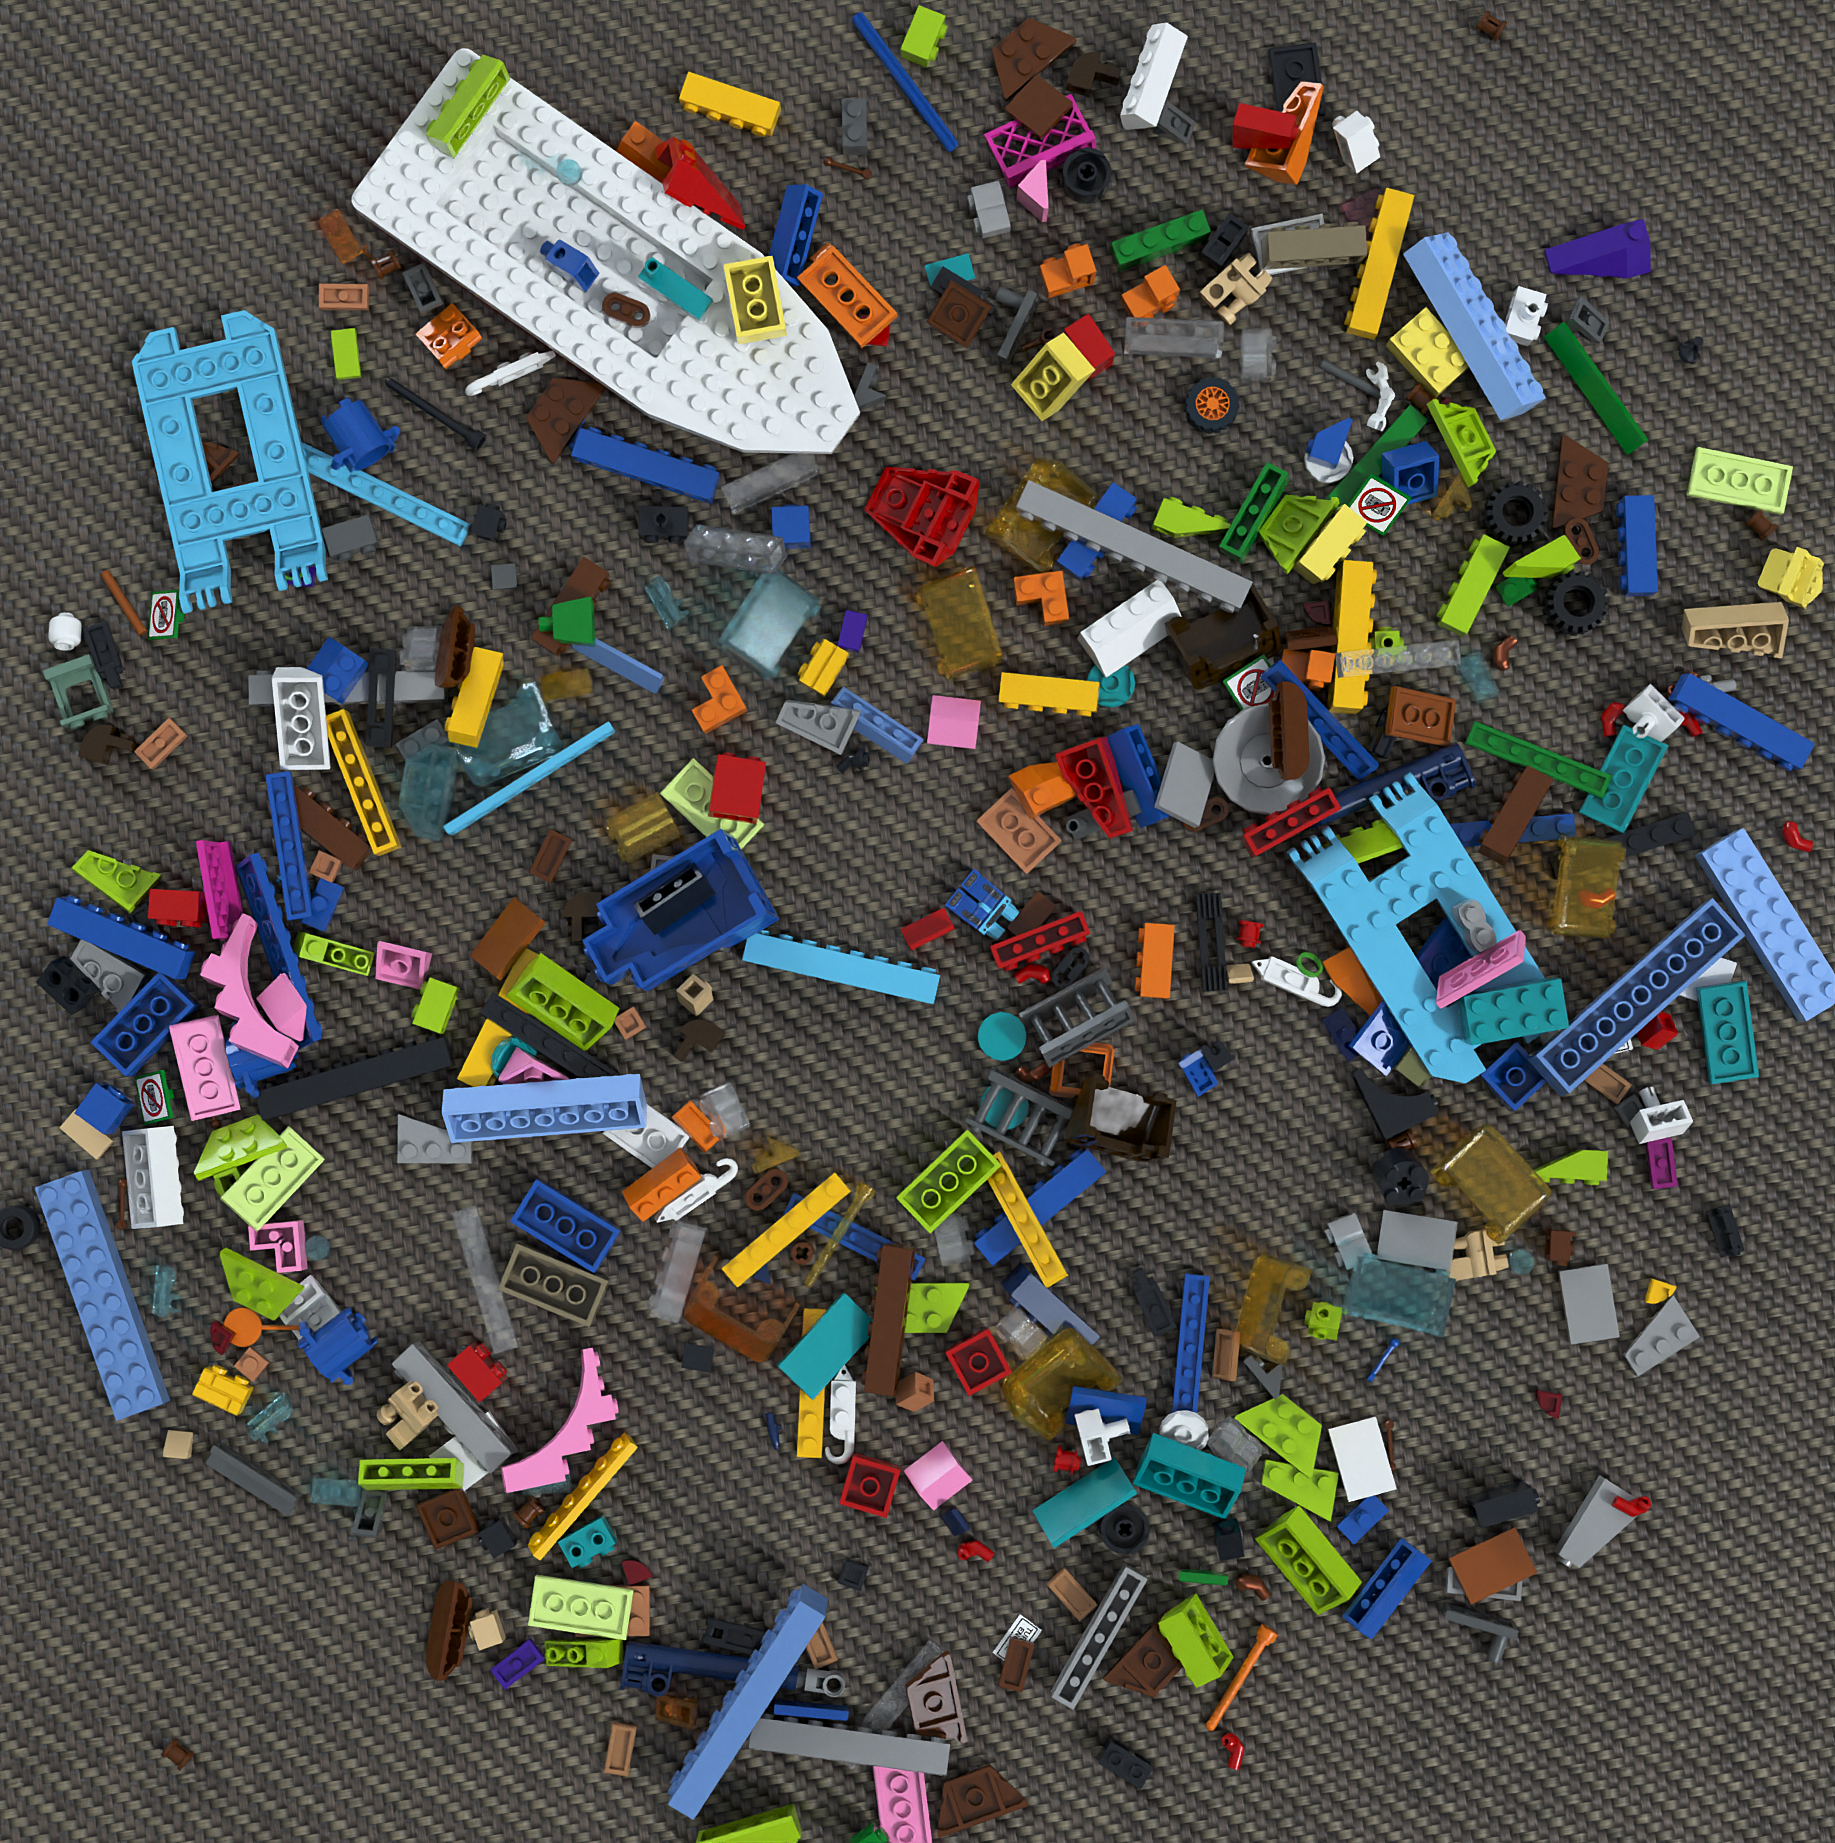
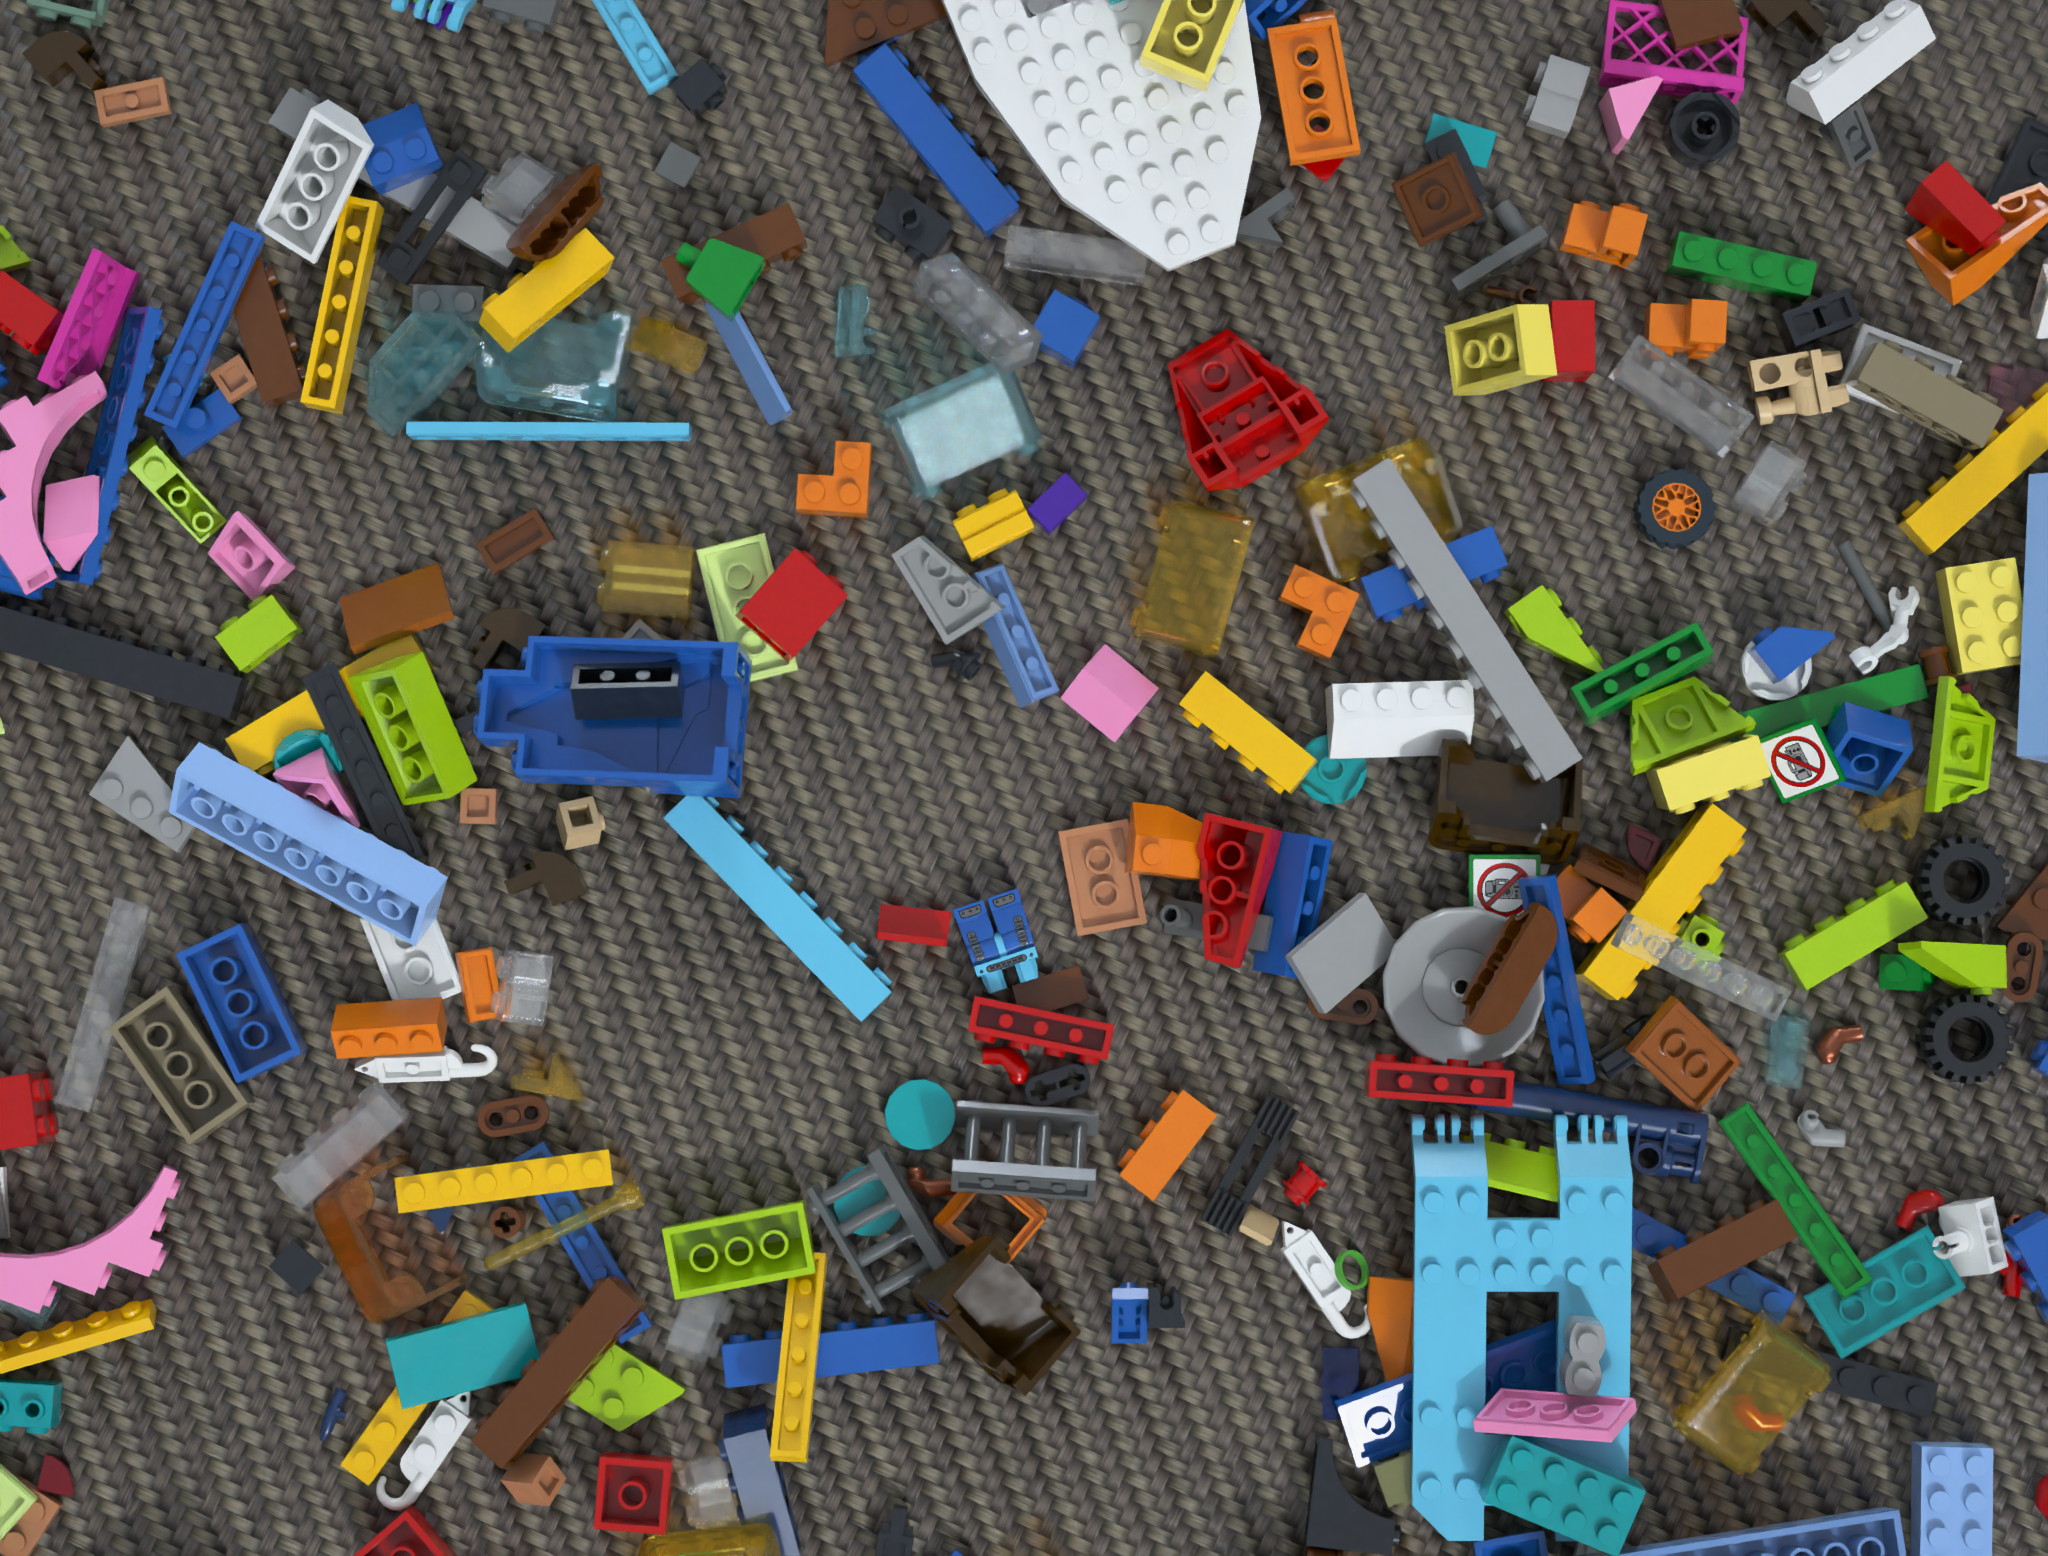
camera: 30 degrees right, 0 degrees up
(1526, 713) = (1816, 1133): none -> light grey arm

